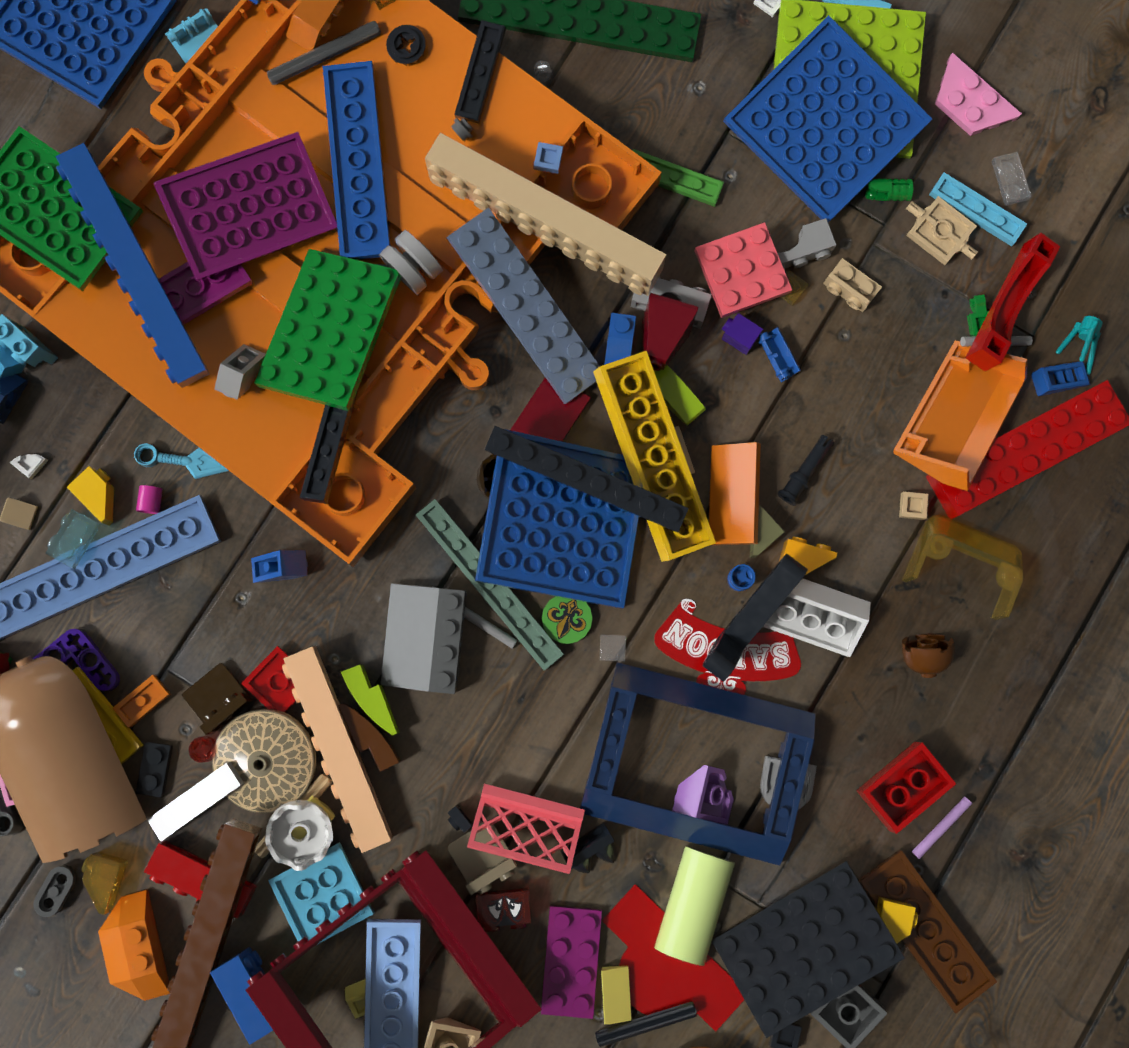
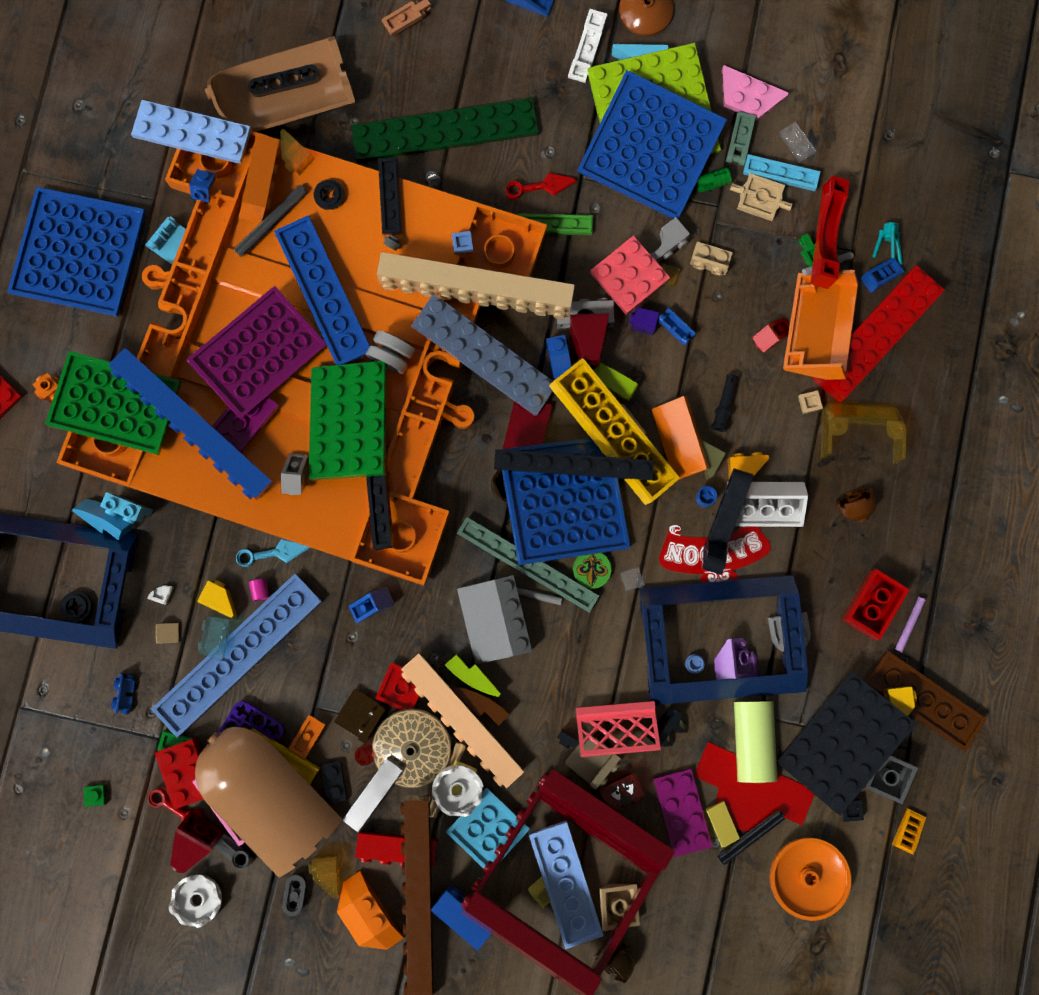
camera: 15 degrees left, 0 degrees up
(653, 781) = (694, 663): none -> medium blue plate
(687, 127) = (552, 184): none -> red piece
(894, 405) = (772, 334): none -> red slope
(942, 149) = (740, 138): none -> sand green plate

